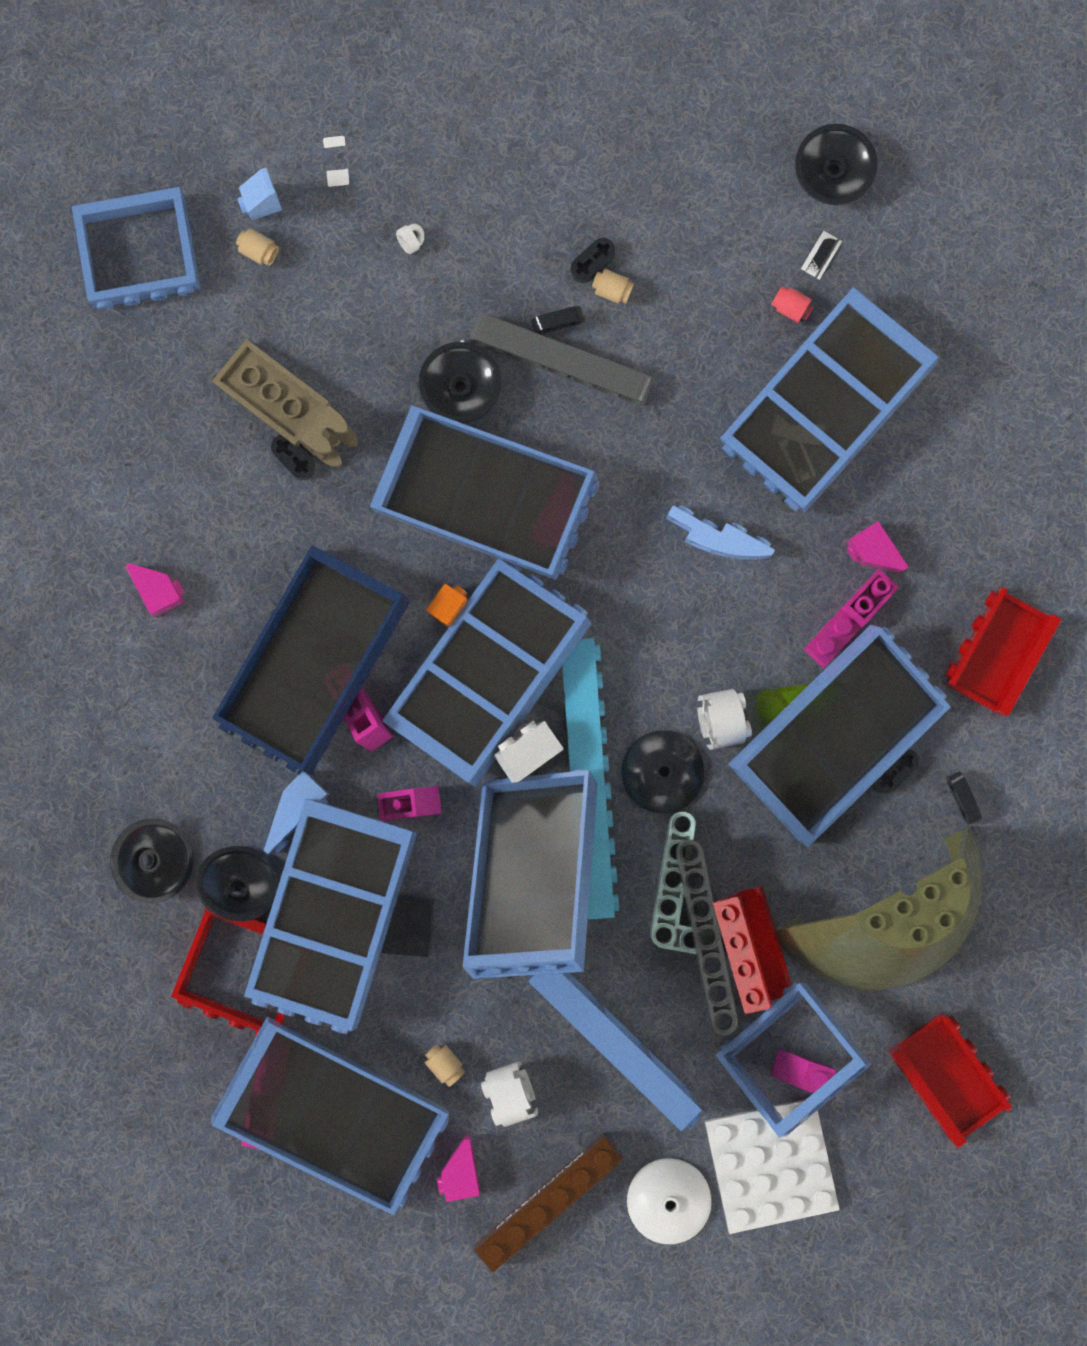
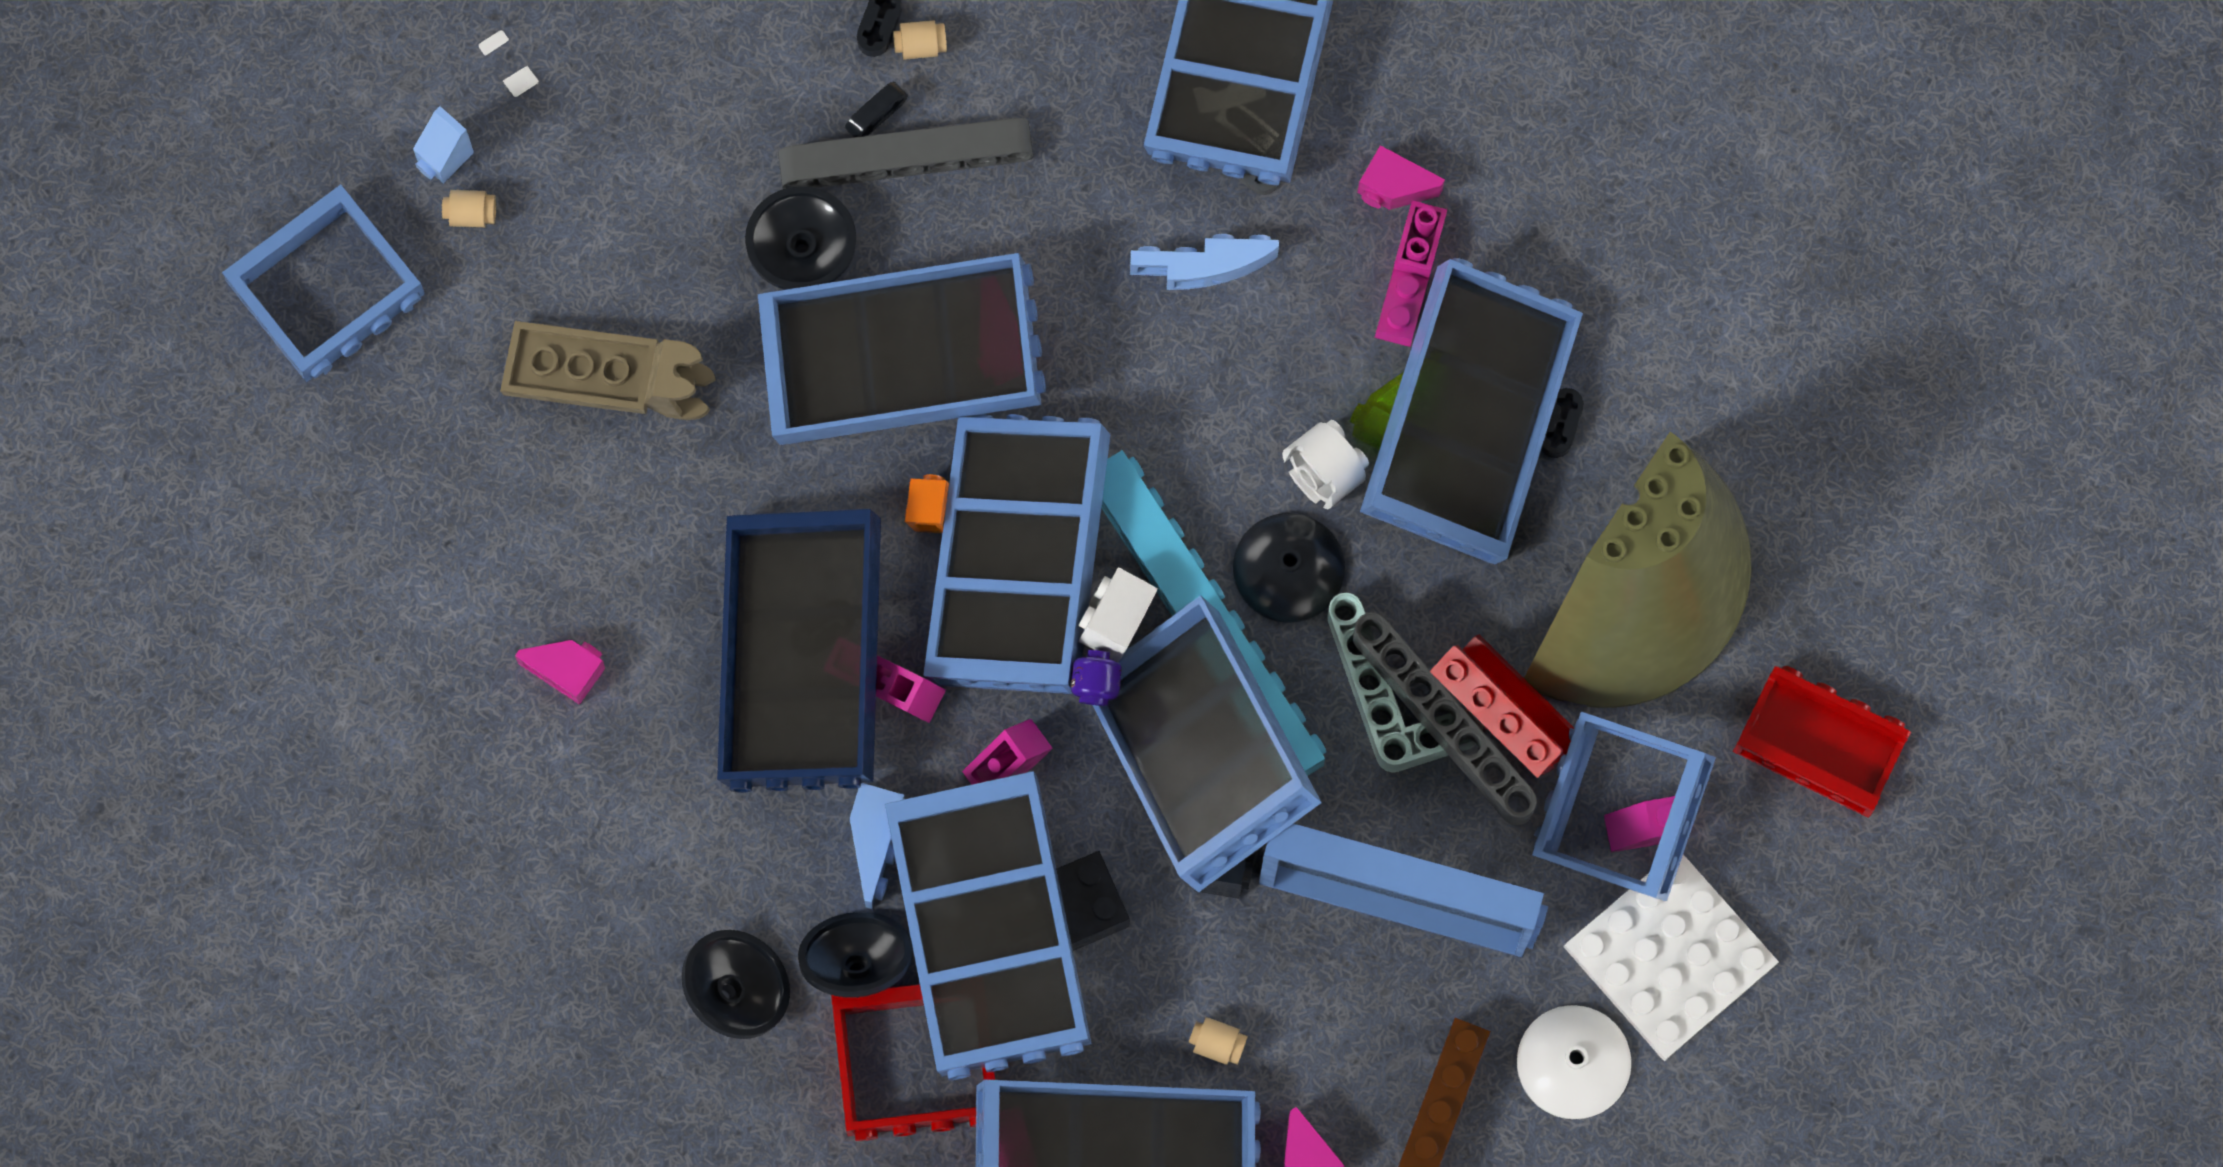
camera: 30 degrees left, 10 degrees down
(289, 462) = (642, 439): black beam -> none
(408, 239) = (646, 108): white tile -> none
(490, 787) = (1096, 678): none -> dark purple head
(510, 1094) = (1316, 1029): white brick -> none
(964, 798) = (1657, 410): black beam -> none
(1001, 652) = (1607, 224): red panel -> none

